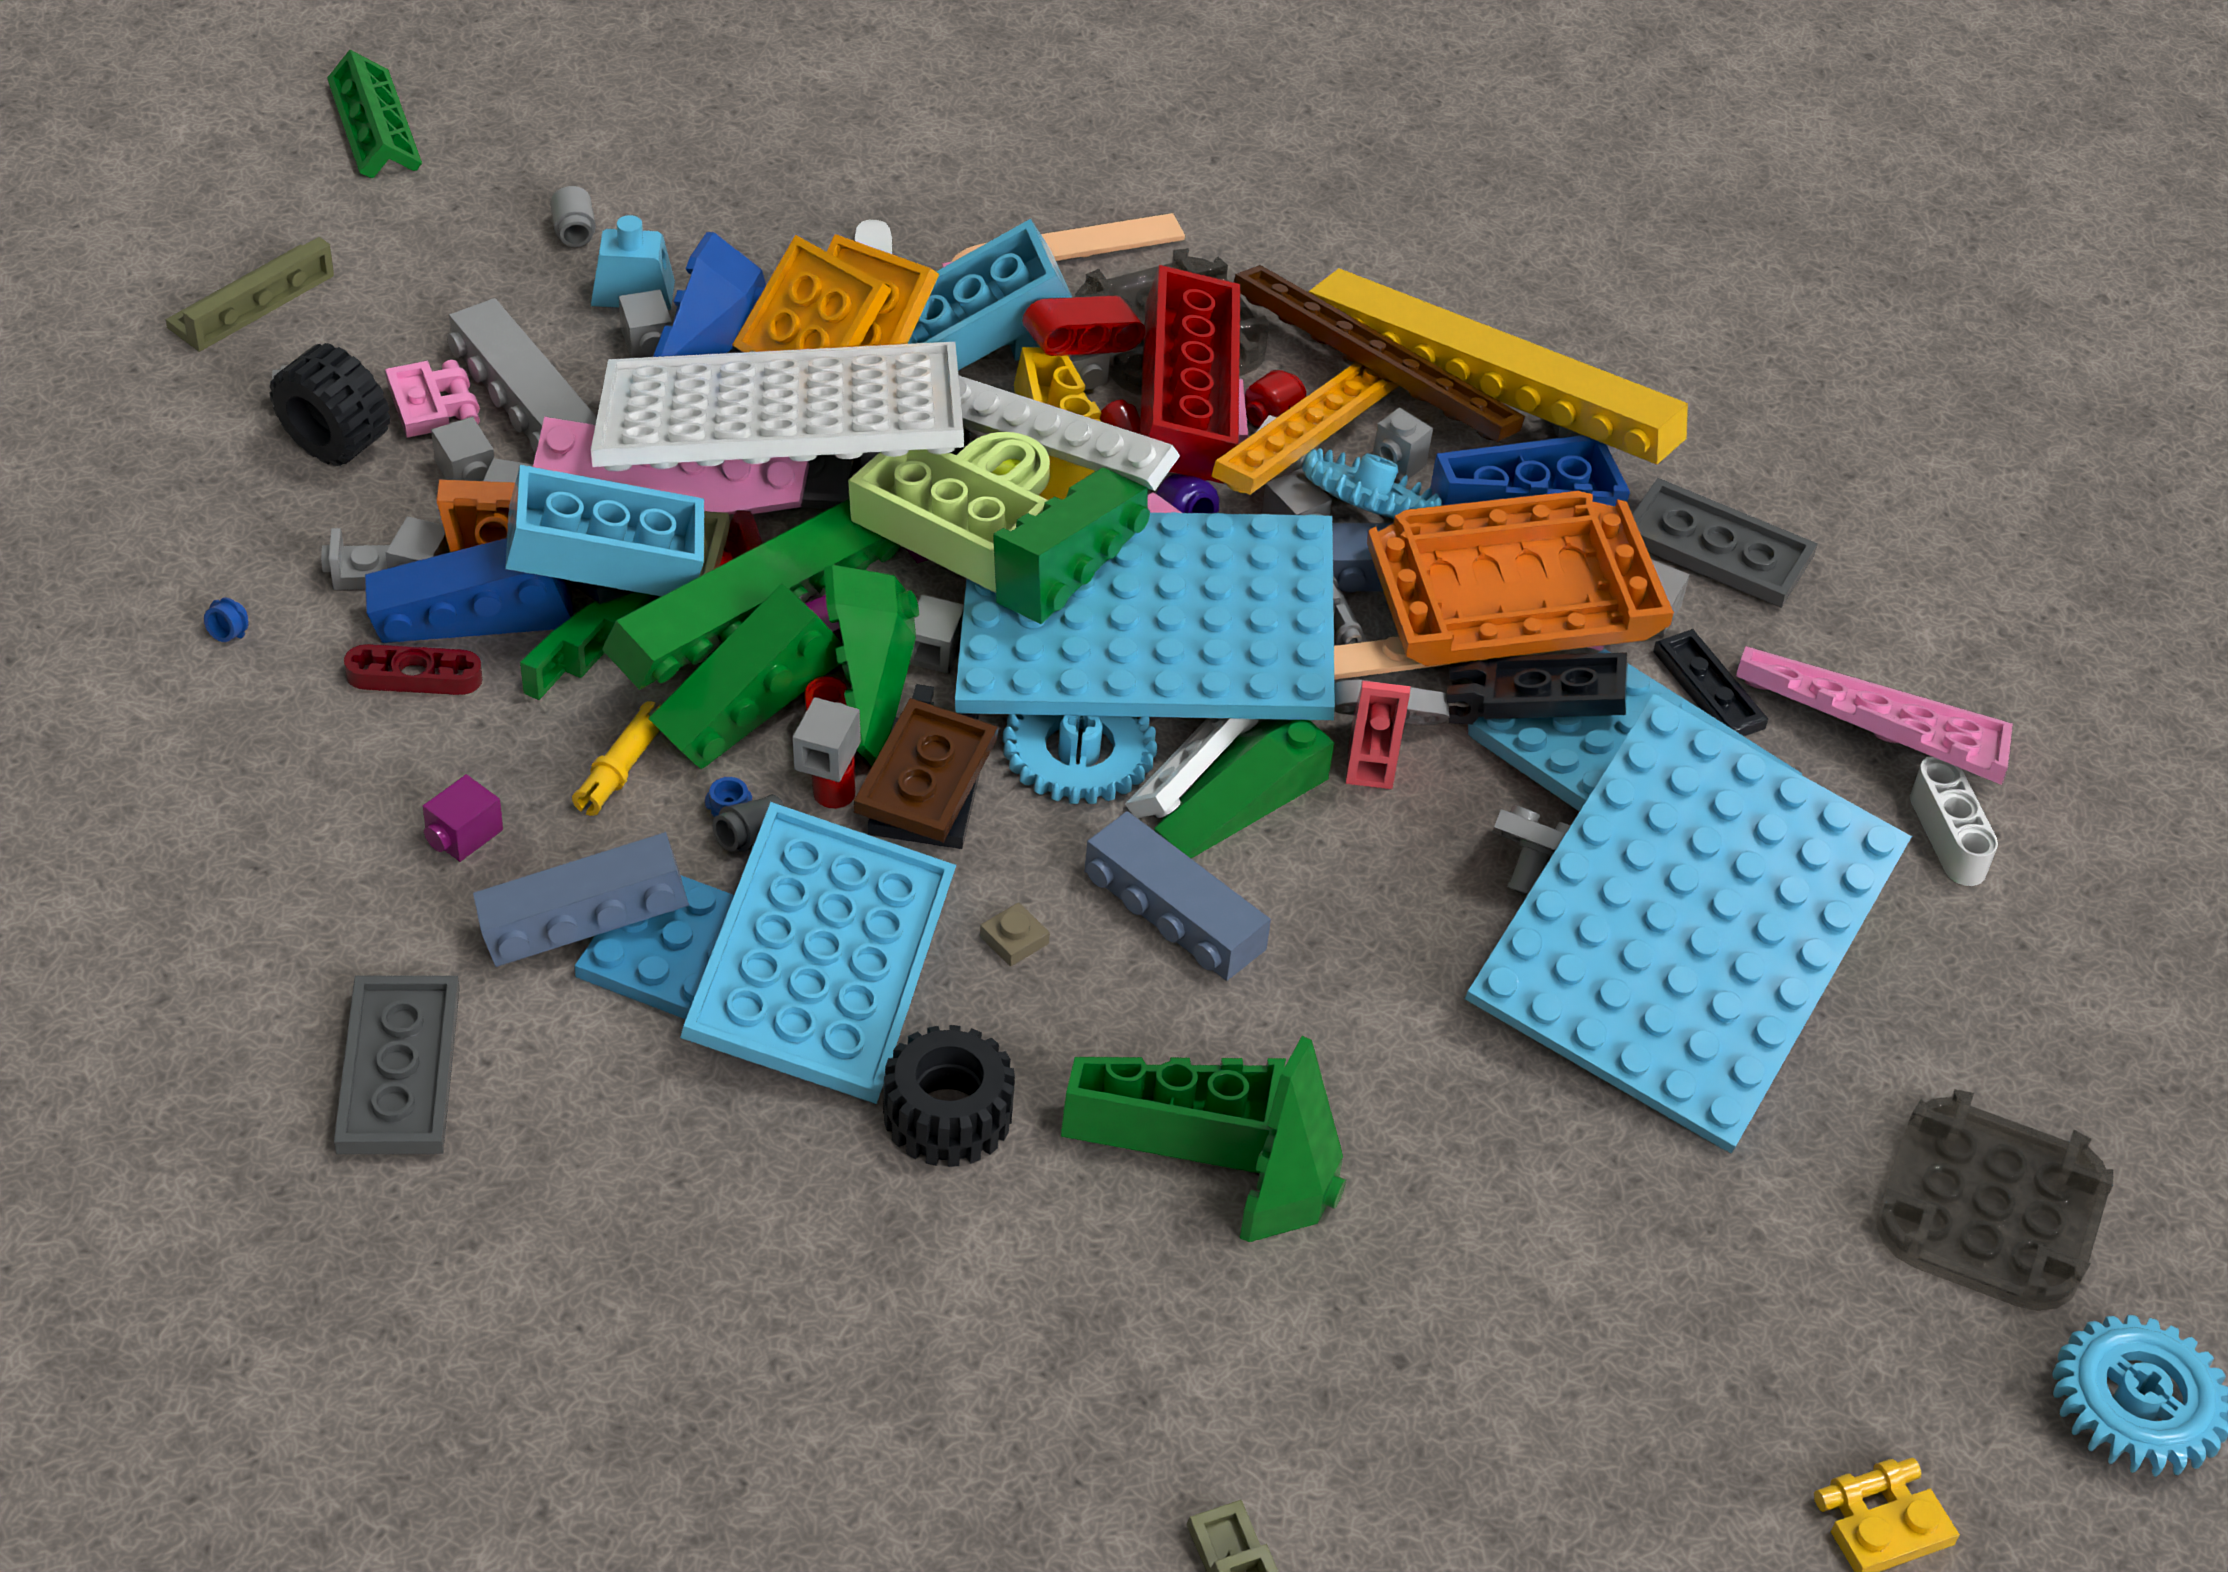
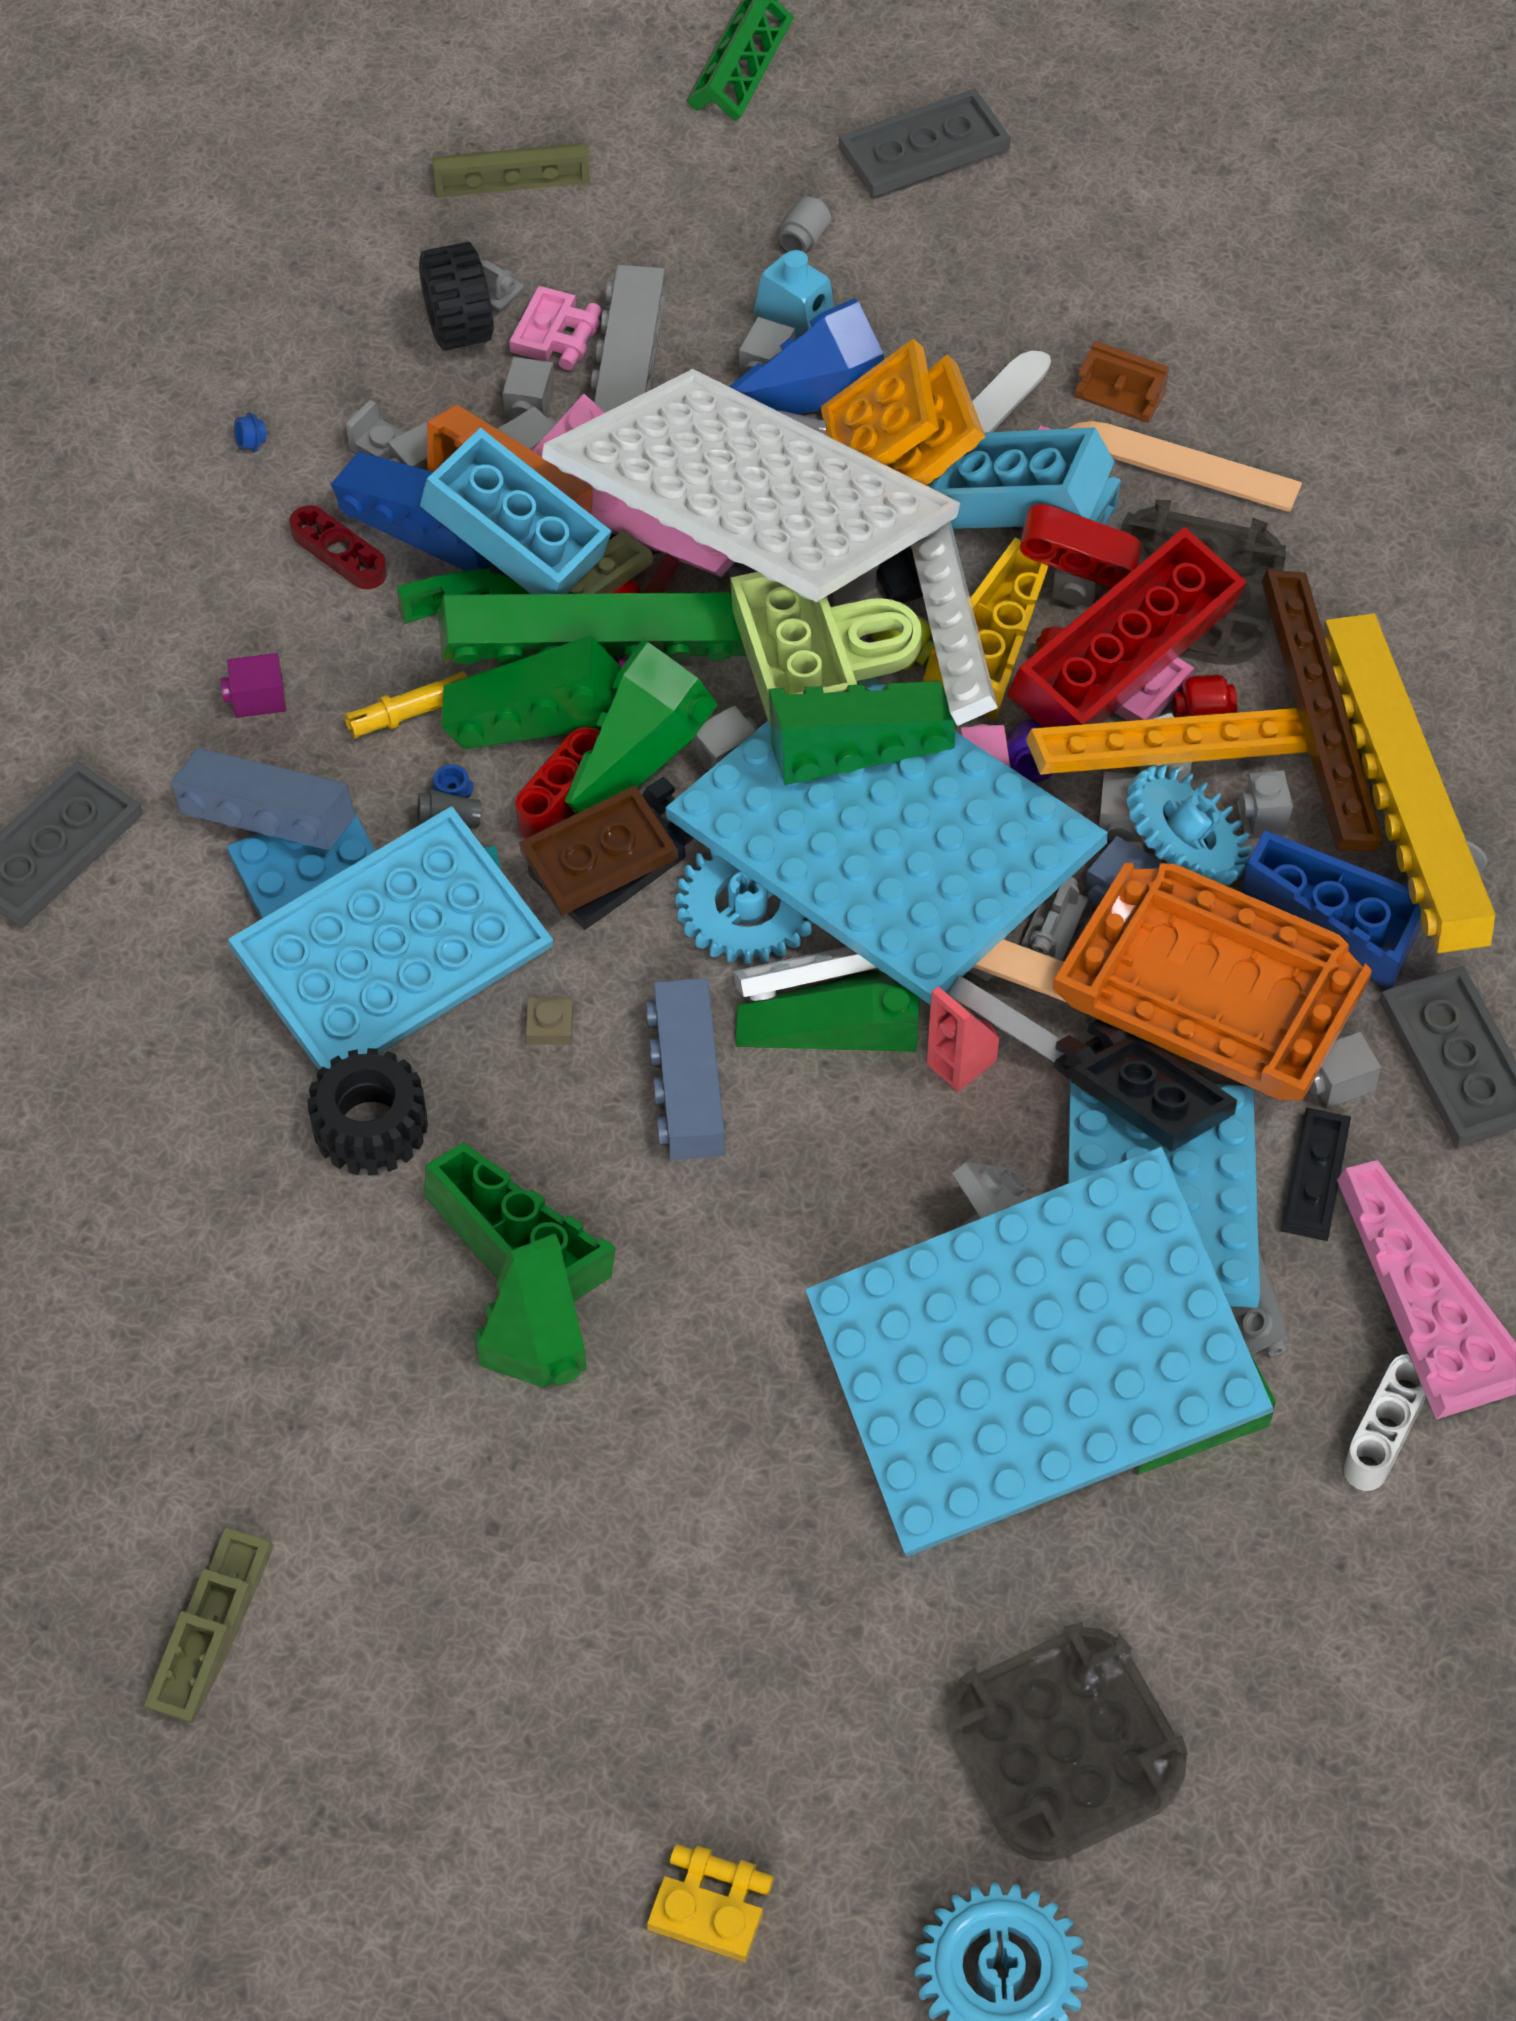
camera: 45 degrees right, 10 degrees up
(607, 111) = (924, 142): none -> dark grey plate
(826, 739) = (534, 780): light grey brick -> none
(961, 207) = (1122, 382): none -> dark orange hinge

